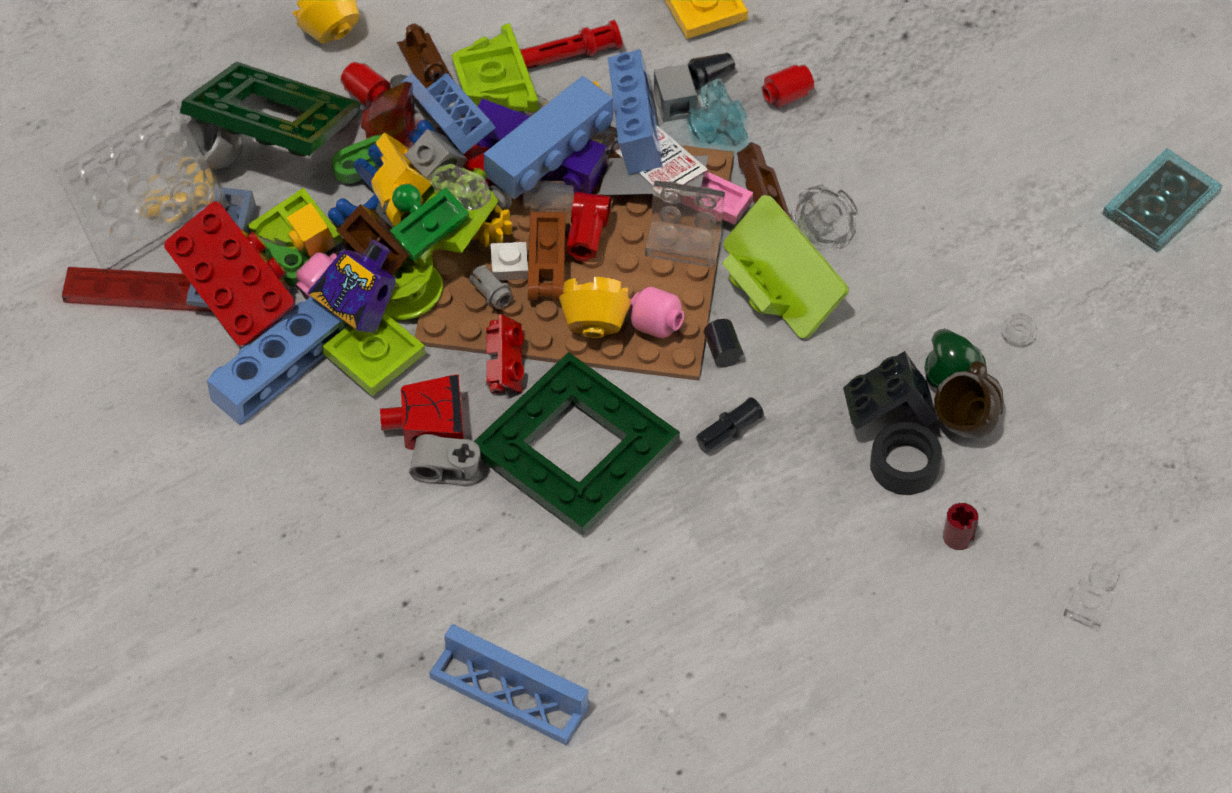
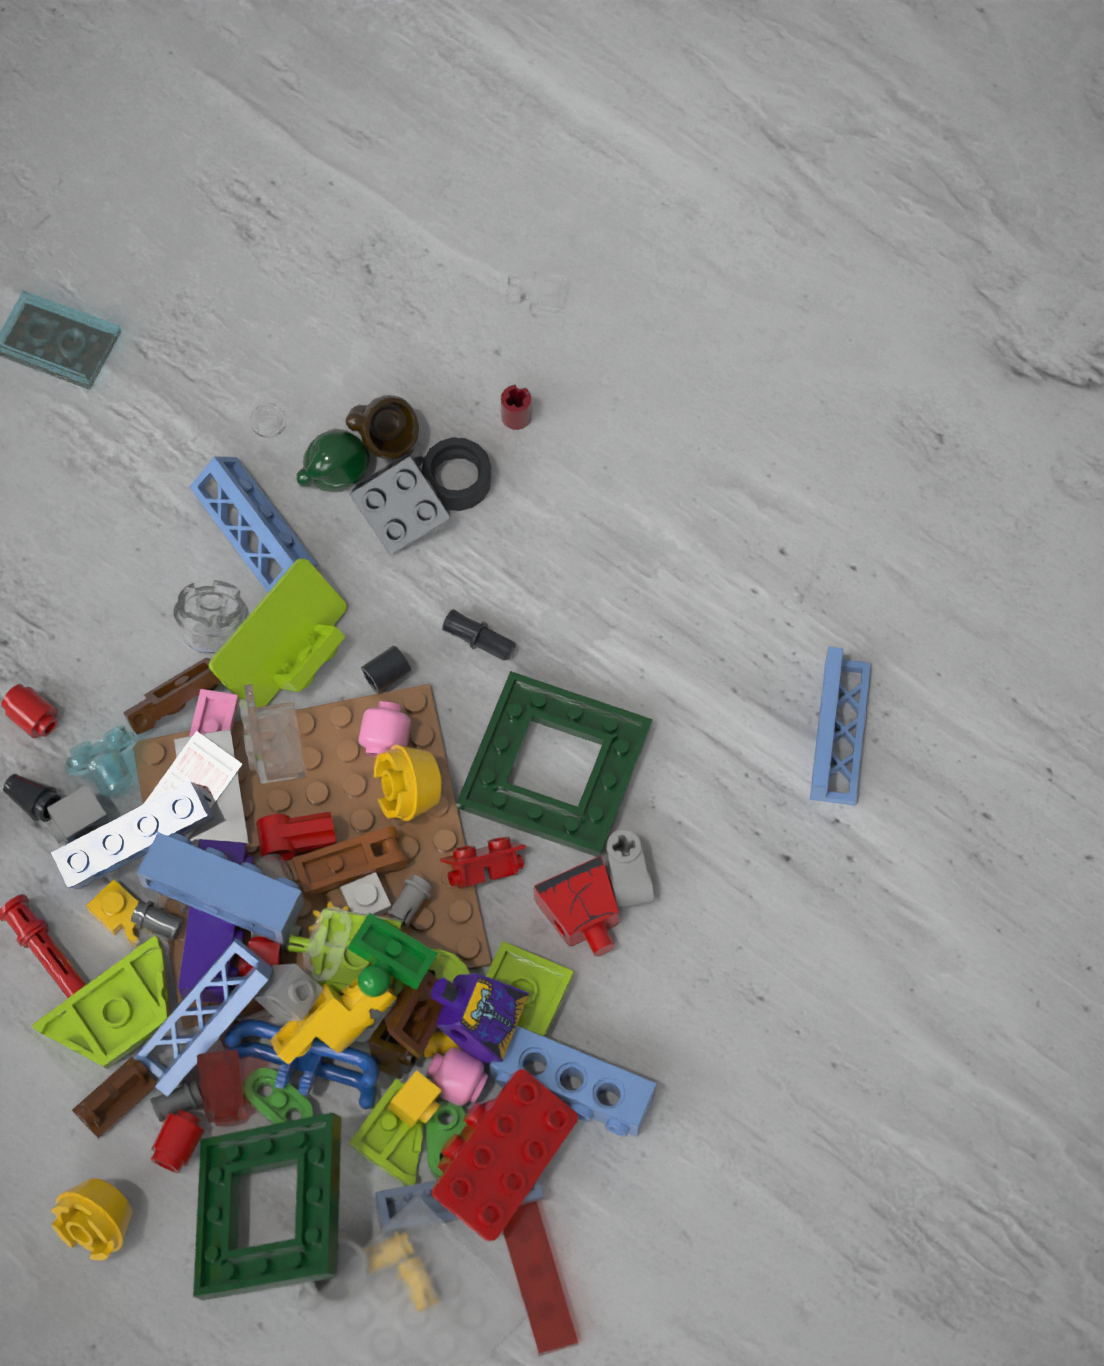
camera: 110 degrees left, 10 degrees up
(916, 290) = (253, 509): none -> medium blue fence

